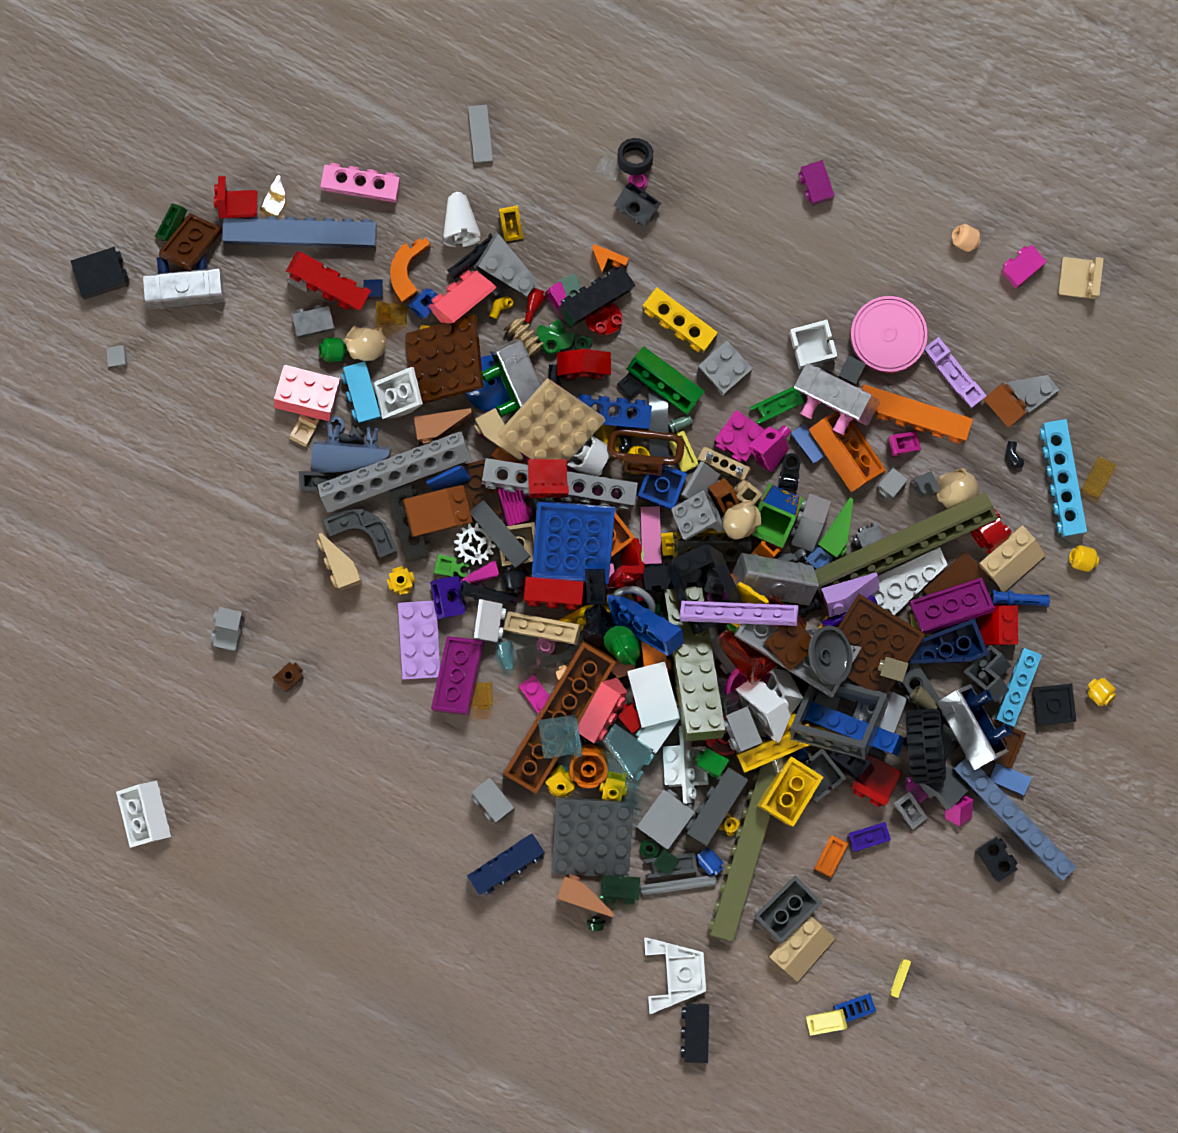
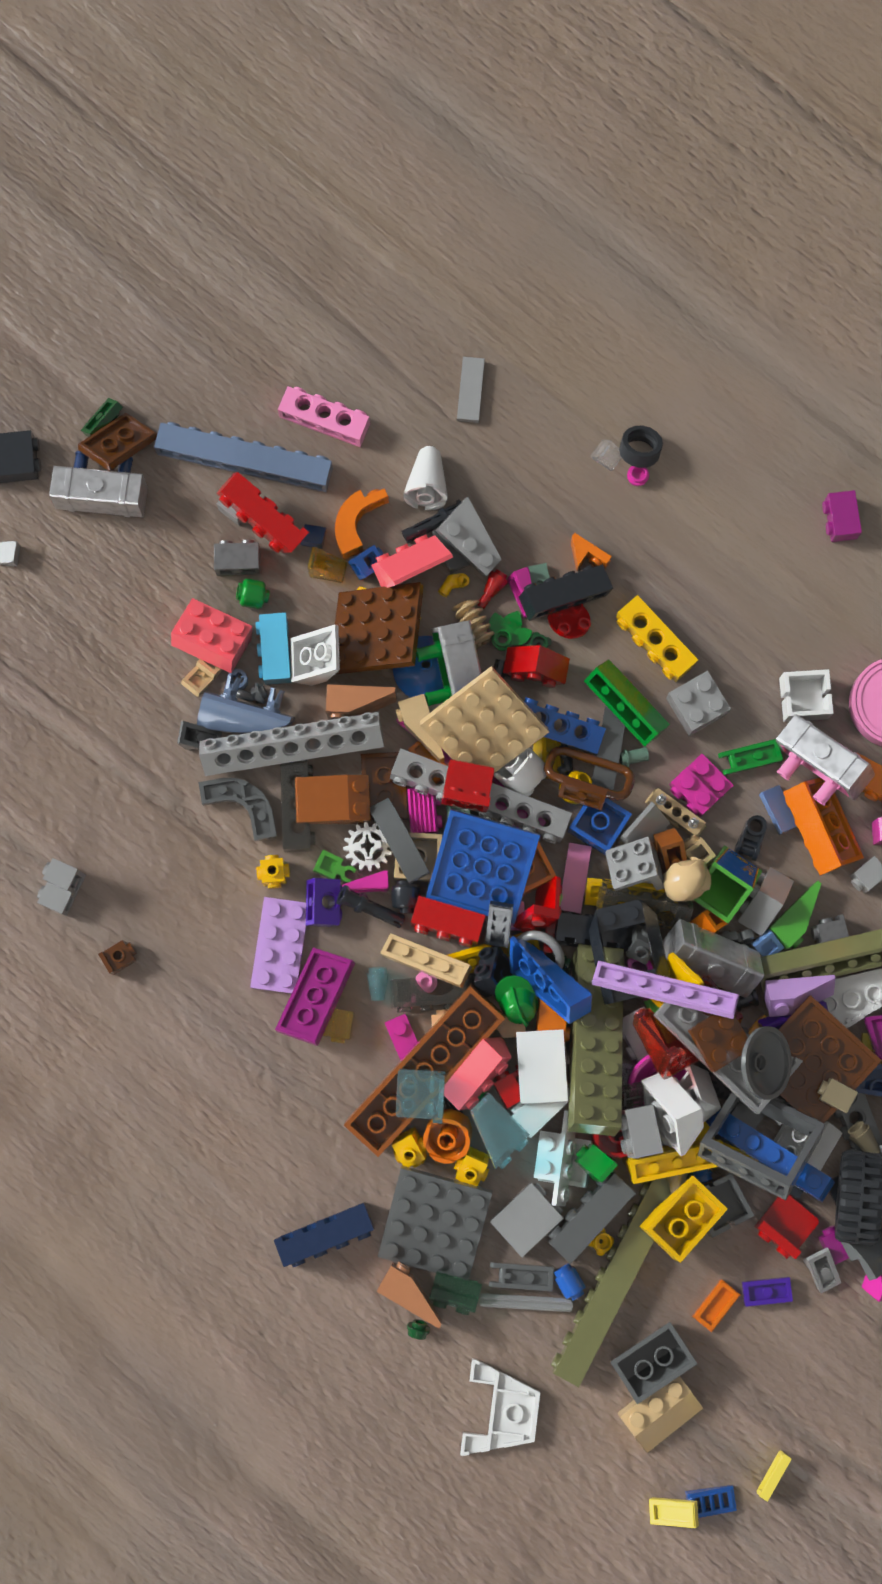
camera: 15 degrees right, 5 degrees down
(234, 203) = (176, 410): red bracket -> none
(275, 199) = (225, 416): slope -> none
(343, 568) = (209, 847): tan slope -> none
(365, 343) = (290, 593): tan helmet -> none
(449, 478) = (356, 764): blue slope -> none
(488, 621) = (365, 939): white slope -> none
(492, 800) = (325, 1154): light grey brick -> none
(511, 223) = (485, 492): yellow slope -> none
(630, 384) = (584, 701): black tile -> none
(647, 204) = (645, 501): black brick -> none
(649, 842) = (492, 1250): dark green plate -> none
(666, 862) = (517, 1272): clear green tile -> none
(689, 459) = (636, 799): light yellow tile -> none
(695, 1032) = (511, 1491): black brick -> none
(770, 447) = (734, 804): dark pink torso -> none
(851, 370) = (846, 732): dark grey brick -> none
(855, 767) = (765, 1203): black brick -> none

